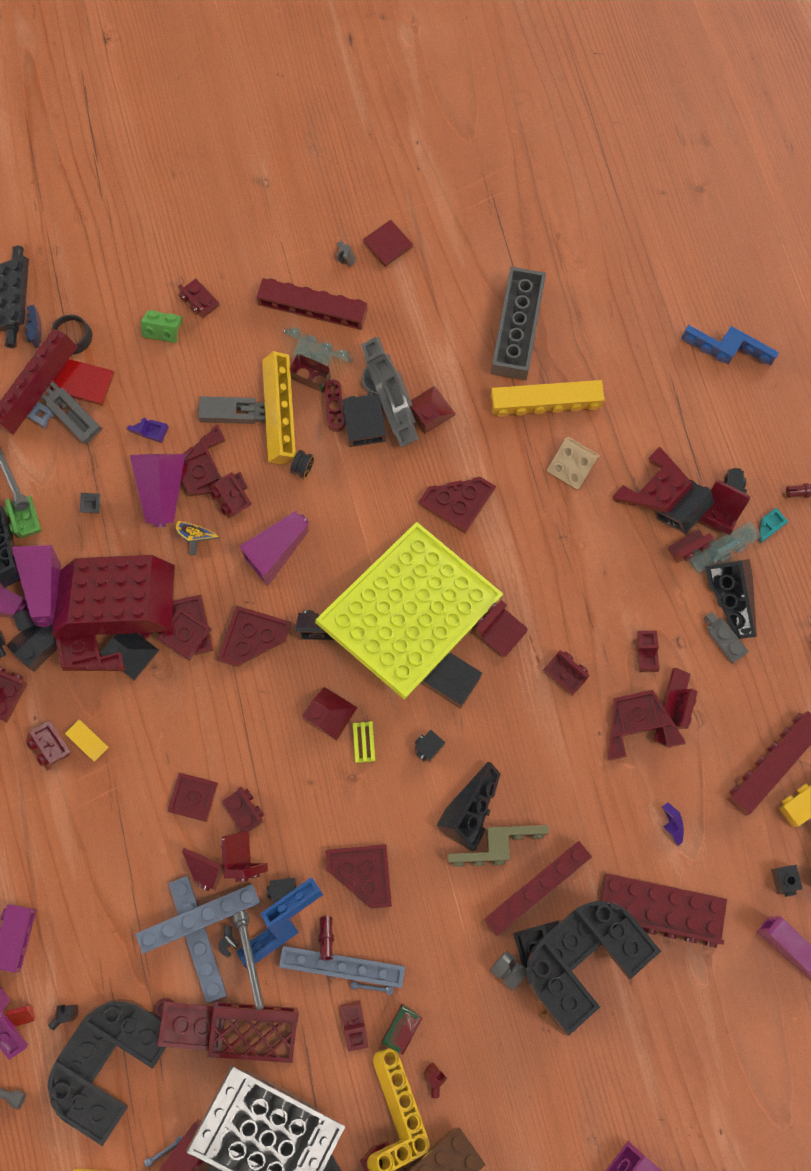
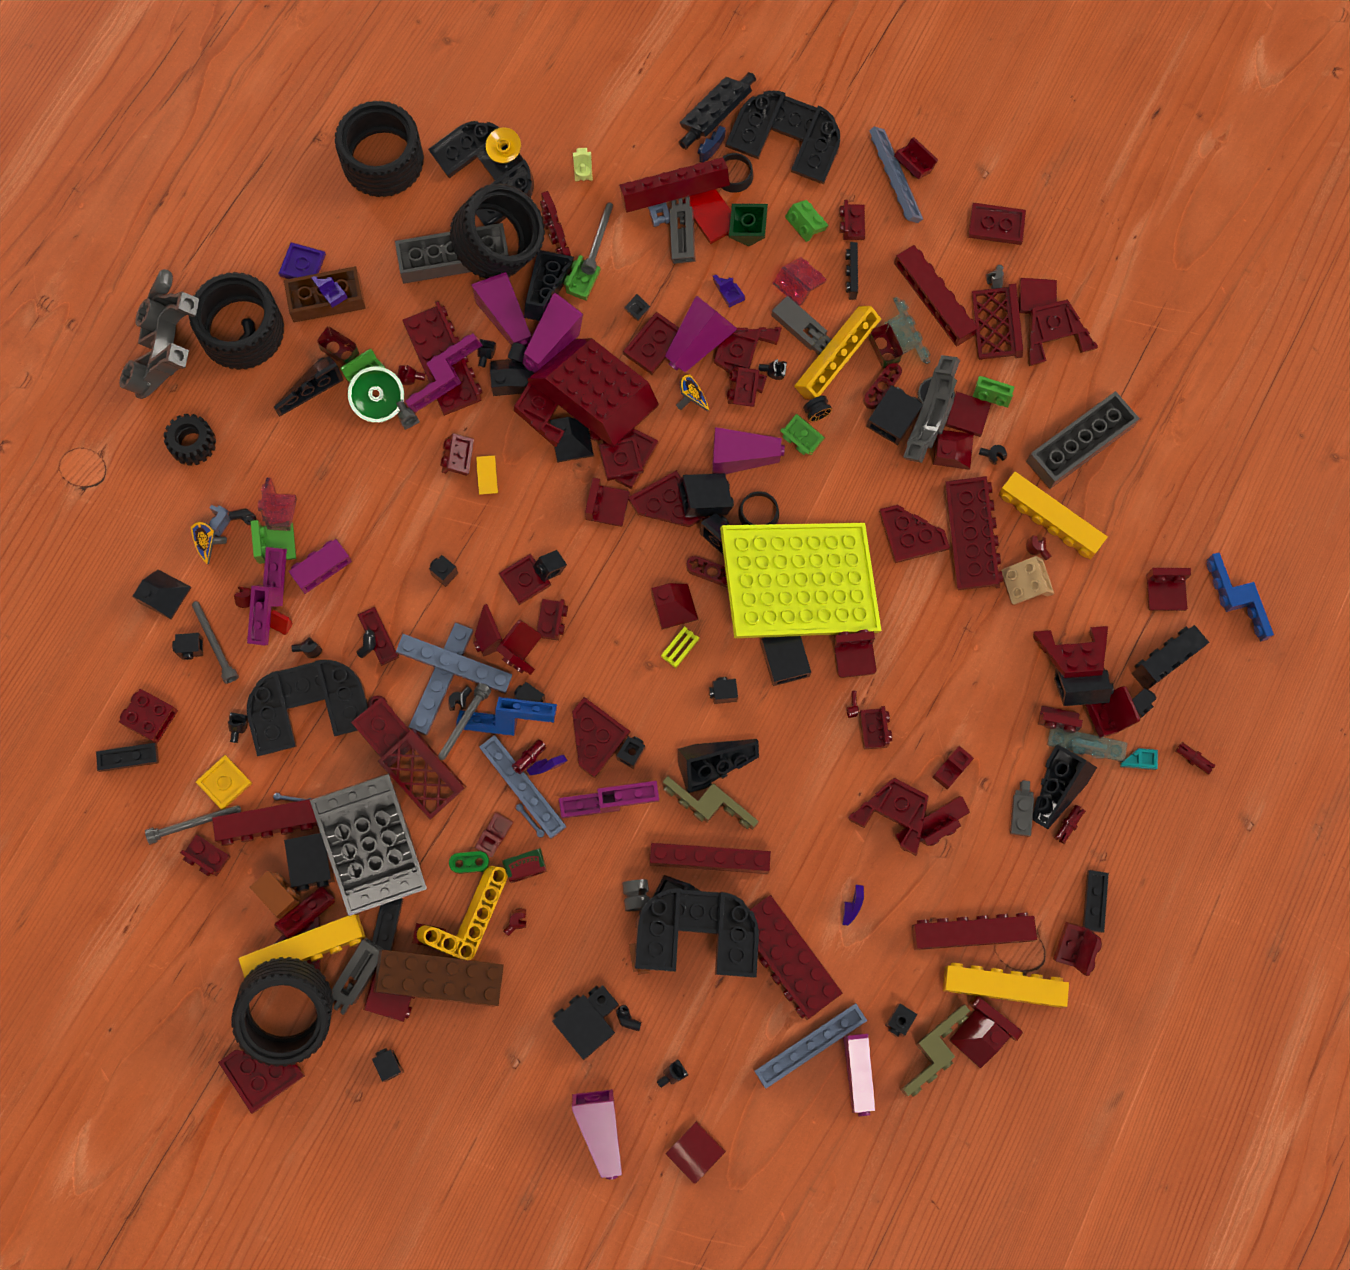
camera: 40 degrees right, 0 degrees up
(60, 1135) = (237, 724): none -> black piece
(81, 255) = (791, 118): none -> black plate
(113, 951) = (384, 648): none -> dark red tile
(113, 965) = (369, 644): none -> black arm
(118, 364) = (748, 223): none -> dark green slope
(120, 850) = (443, 570): none -> black brick
(126, 521) = (652, 343): none -> dark red plate
(196, 234) = (896, 175): none -> sand blue plate
(197, 377) = (798, 280): none -> clear pink bracket
(204, 211) = (916, 158): none -> dark red bracket
(204, 769) = (549, 565): none -> black brick
(205, 680) = (606, 504): none -> dark red bracket
(232, 336) = (852, 270): none -> black plate
(241, 461) = (775, 369): none -> black piece
(277, 605) = (705, 495): none -> black brick
(308, 494) = (803, 435): none -> bright green bracket
(309, 212) = (997, 223): none -> dark red plate
(327, 600) = (744, 521): none -> black tyre
(344, 934) = (544, 765): none -> dark purple slope
(351, 661) = (697, 571): none -> dark red beam
(355, 1068) = (469, 862): none -> green plate
(389, 277) = (1013, 322): none -> dark red fence
(407, 866) = (631, 743): none -> black brick
(418, 253) = (1053, 323): none -> dark red wing
(418, 373) = (968, 414): none -> dark red tile
(420, 915) = (609, 799): none -> magenta bracket
(421, 341) = (993, 391): none -> bright green bracket
(463, 385) = (993, 453): none -> black piece
(503, 460) = (973, 533): none -> dark red bracket
(537, 675) = (852, 711): none -> dark red hand
(556, 431) = (1037, 547): none -> dark red piece
(558, 1079) = (602, 1000): none -> black brick
(562, 1115) = (582, 1026): none -> black brick
(588, 1076) = (625, 1019): none -> black arm
(662, 1084) = (673, 1074): none -> black piece
(676, 382) = (1167, 589): none -> dark red bracket
(723, 432) = (1170, 657): none -> black wedge
(735, 1130) = (695, 1152): none -> dark red slope
(741, 963) = (810, 1046): none -> sand blue plate
(767, 618) = (1069, 824): none -> dark red pin

